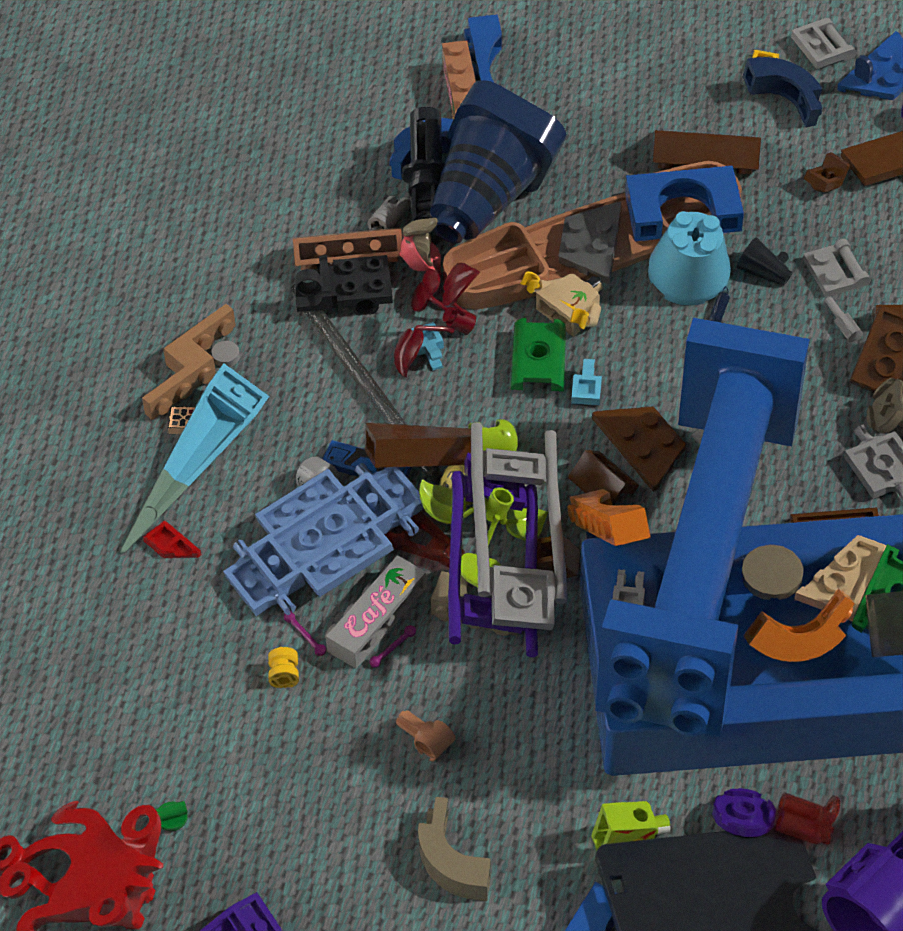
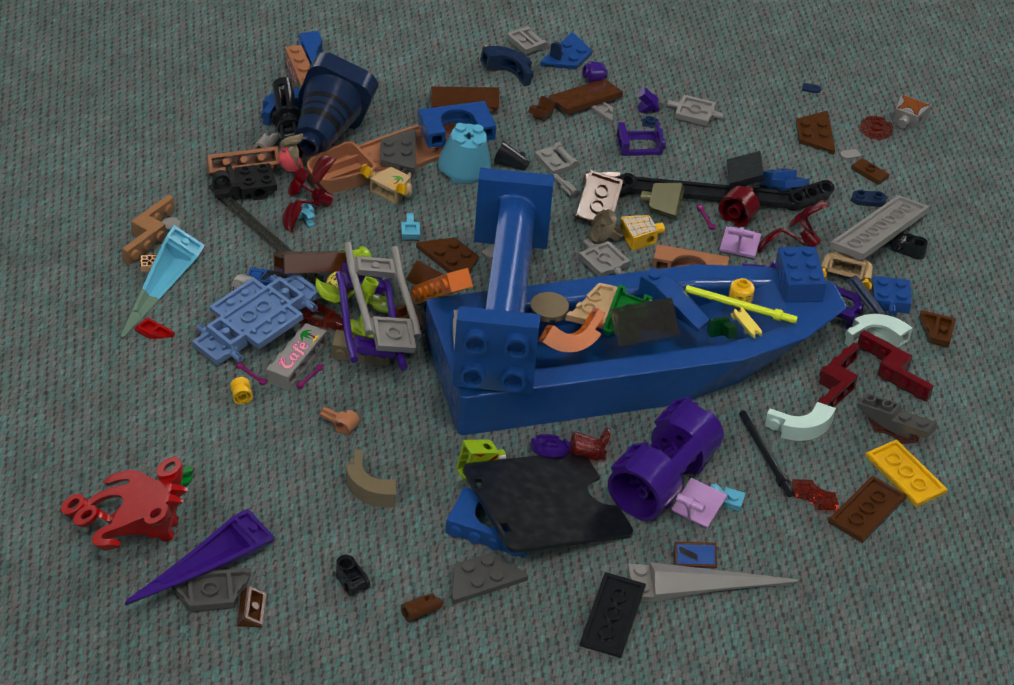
camera: 15 degrees left, 10 degrees down
(538, 354) = (376, 212): green piece -> none

